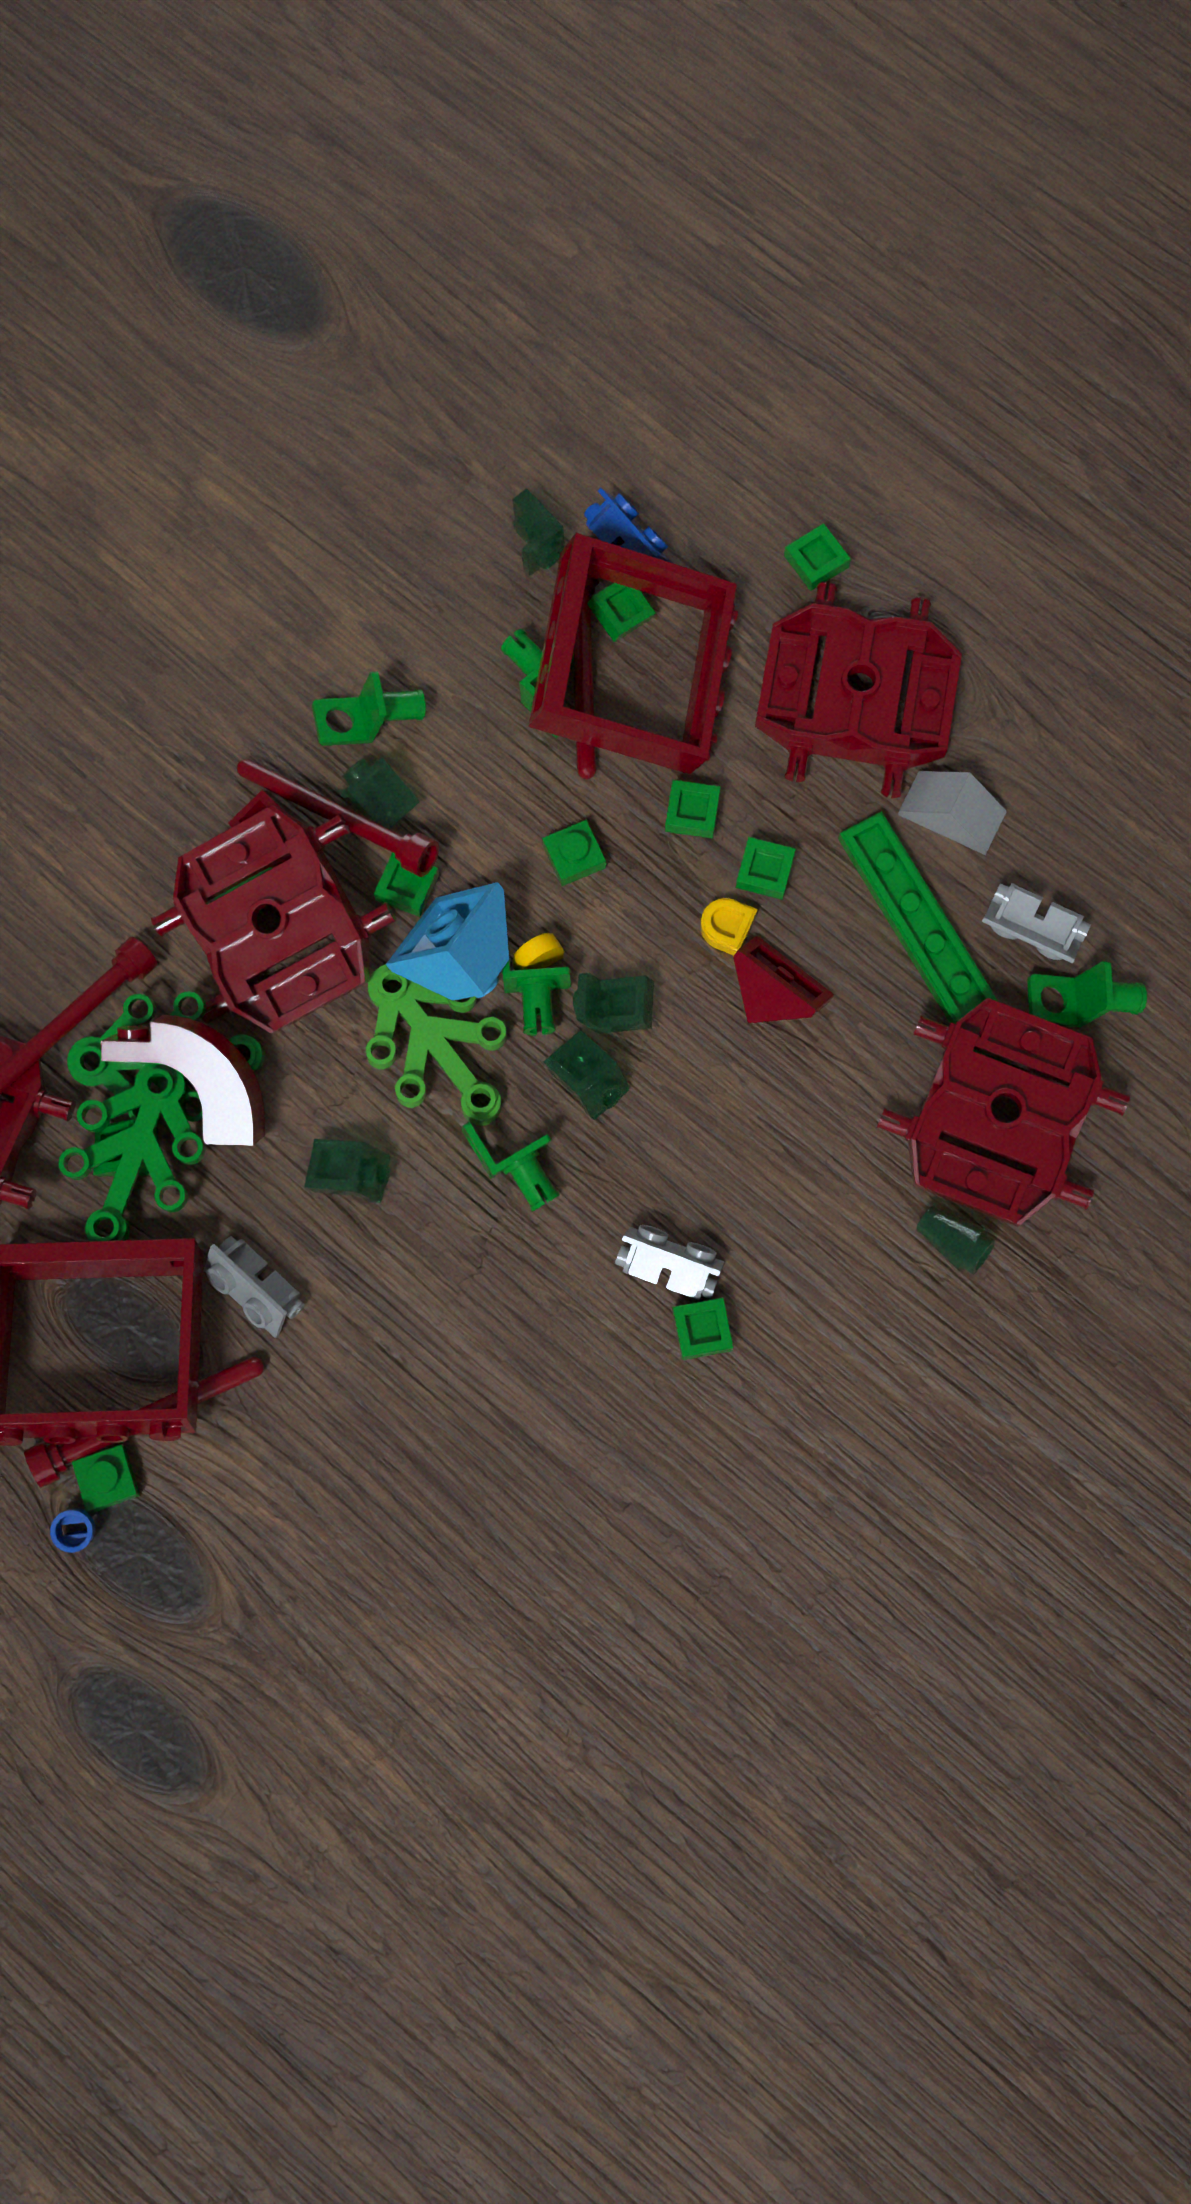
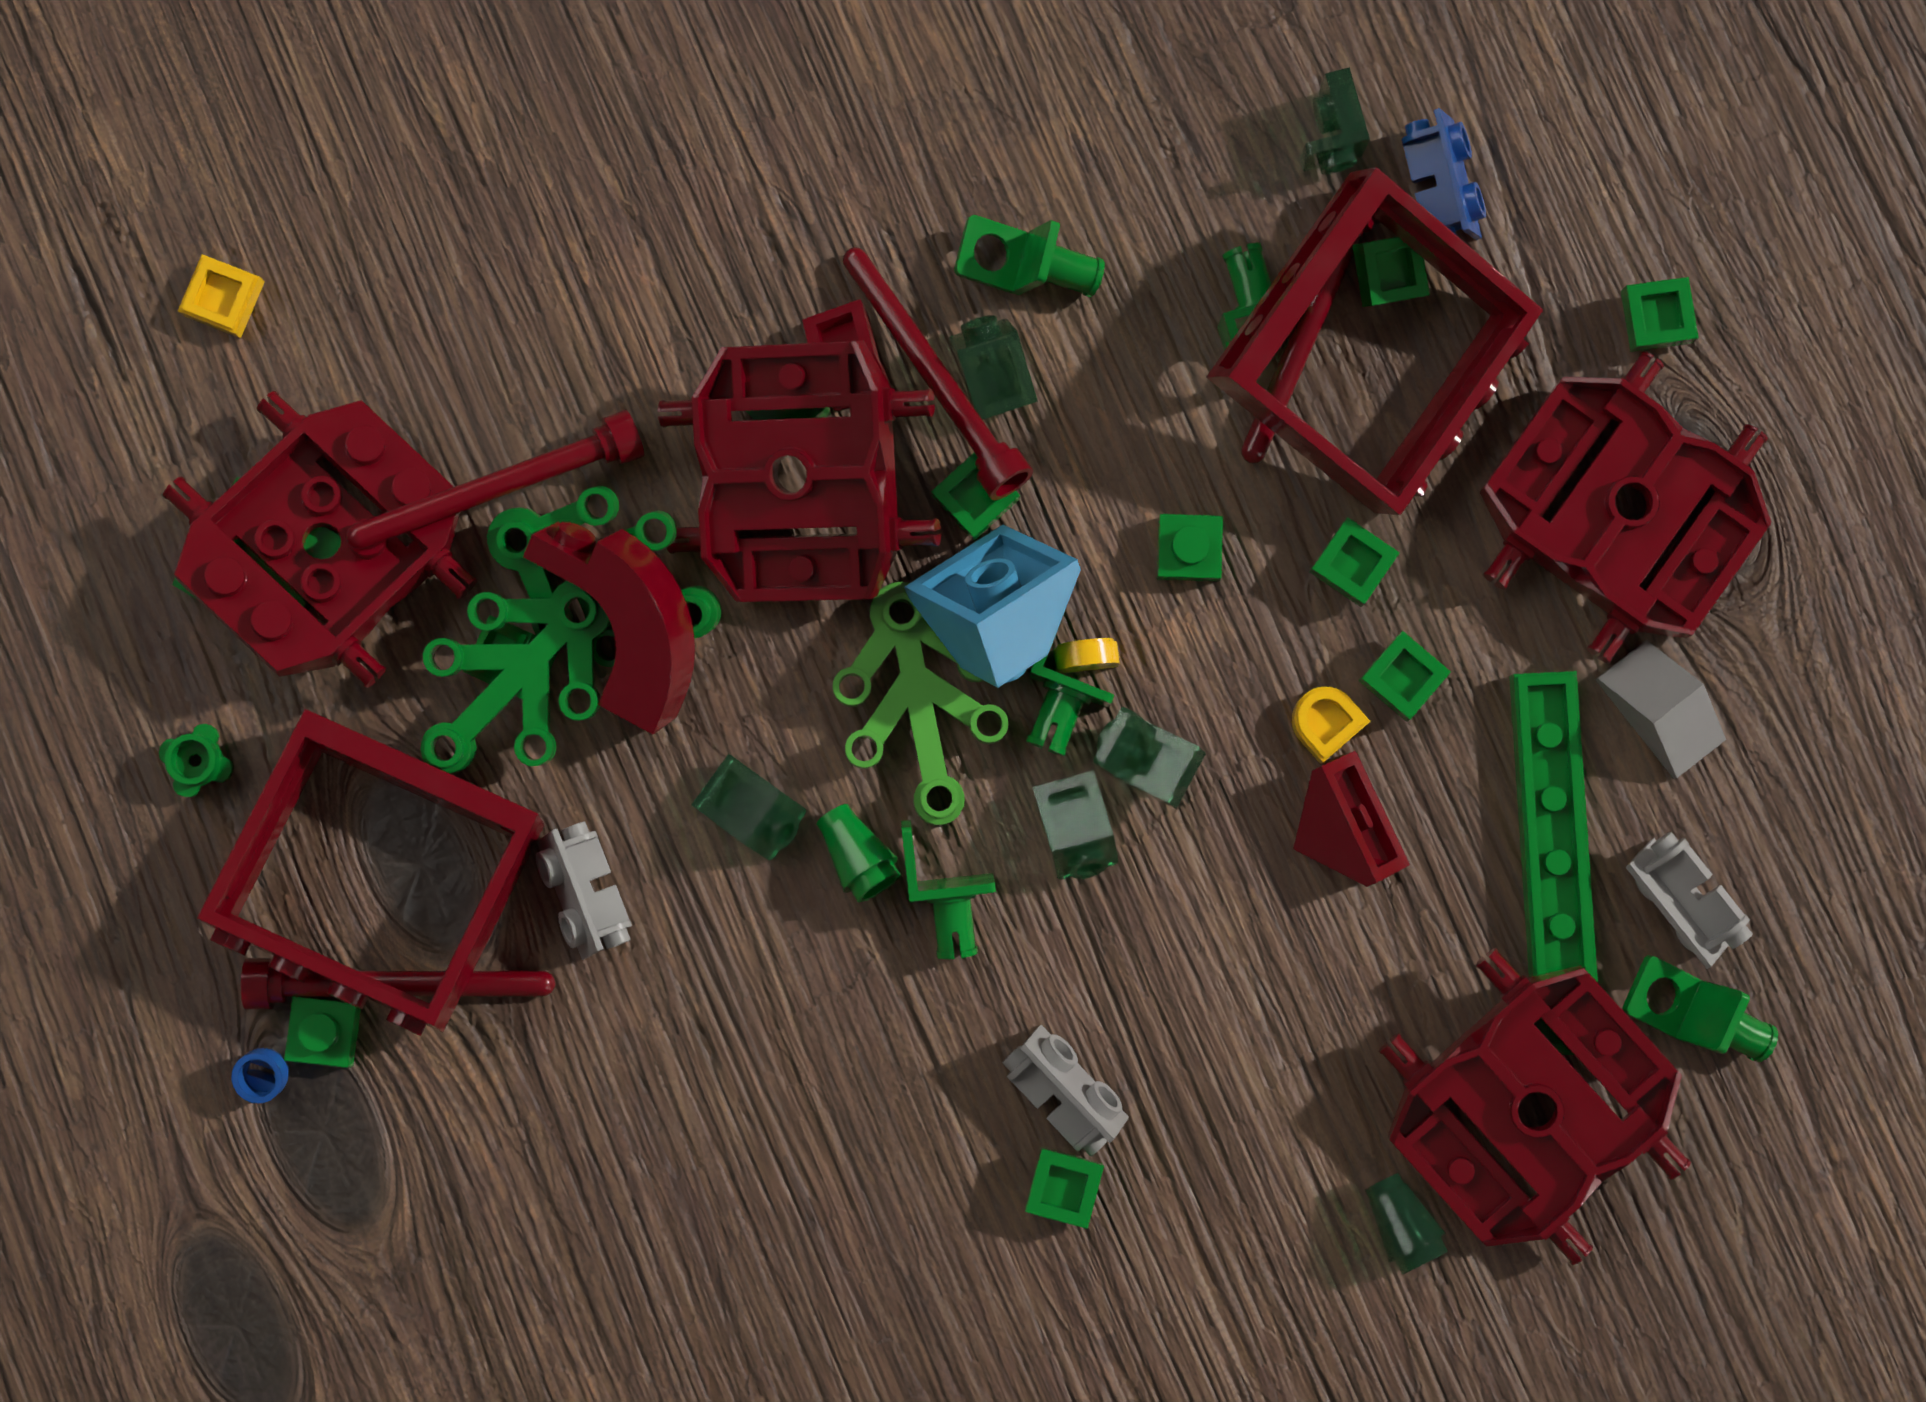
camera: 25 degrees right, 10 degrees up
(441, 1166) = (858, 855): none -> green cone

